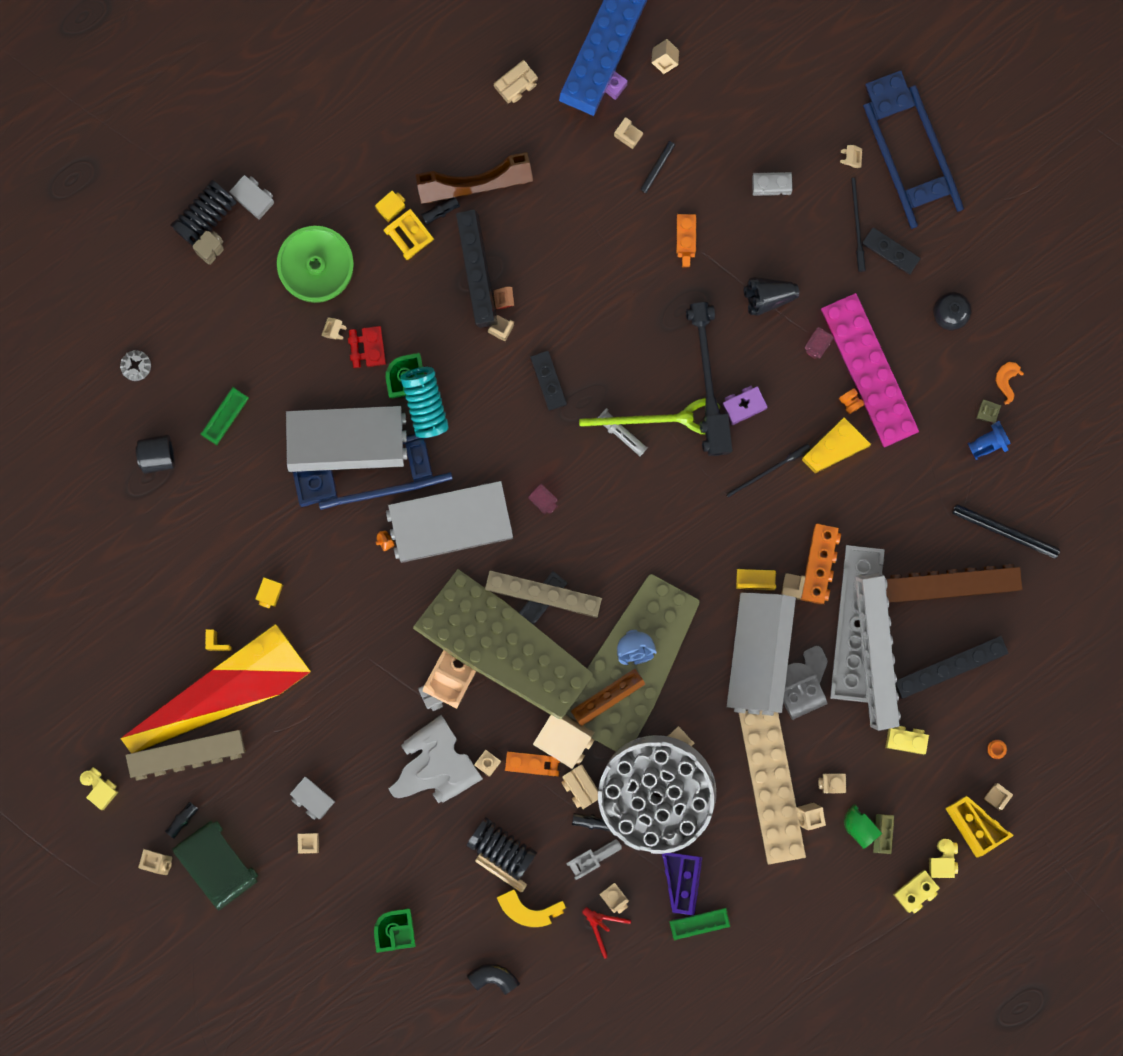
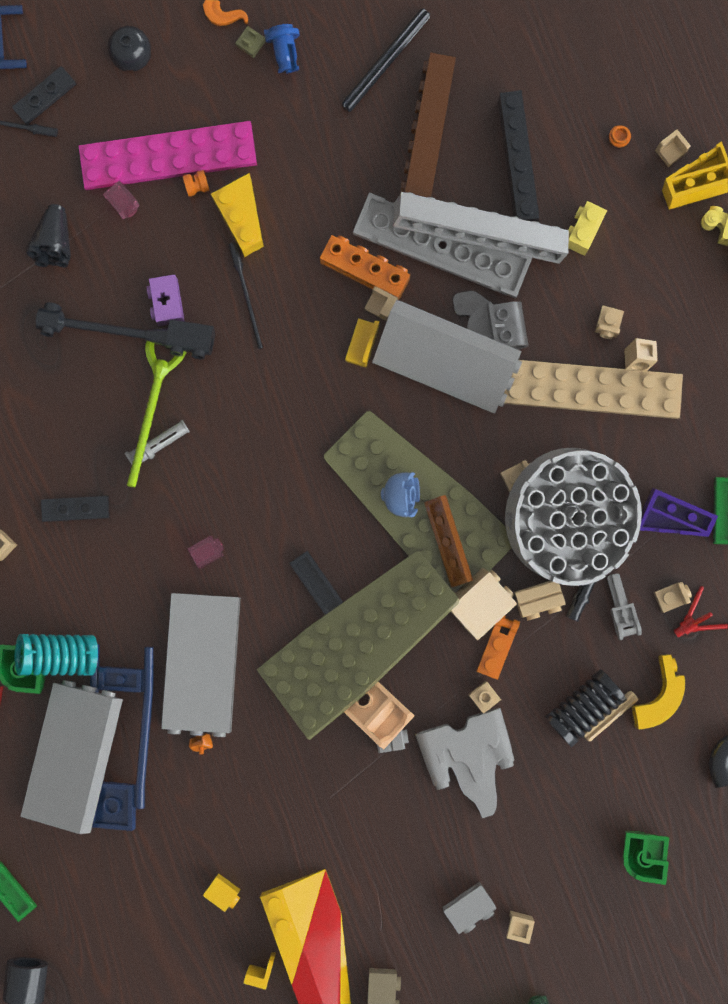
camera: 70 degrees left, 0 degrees up
(543, 593) = (312, 581): dark tan arch -> none
(860, 827) = (667, 303): green brick -> none
(883, 843) = (680, 282): olive plate -> none

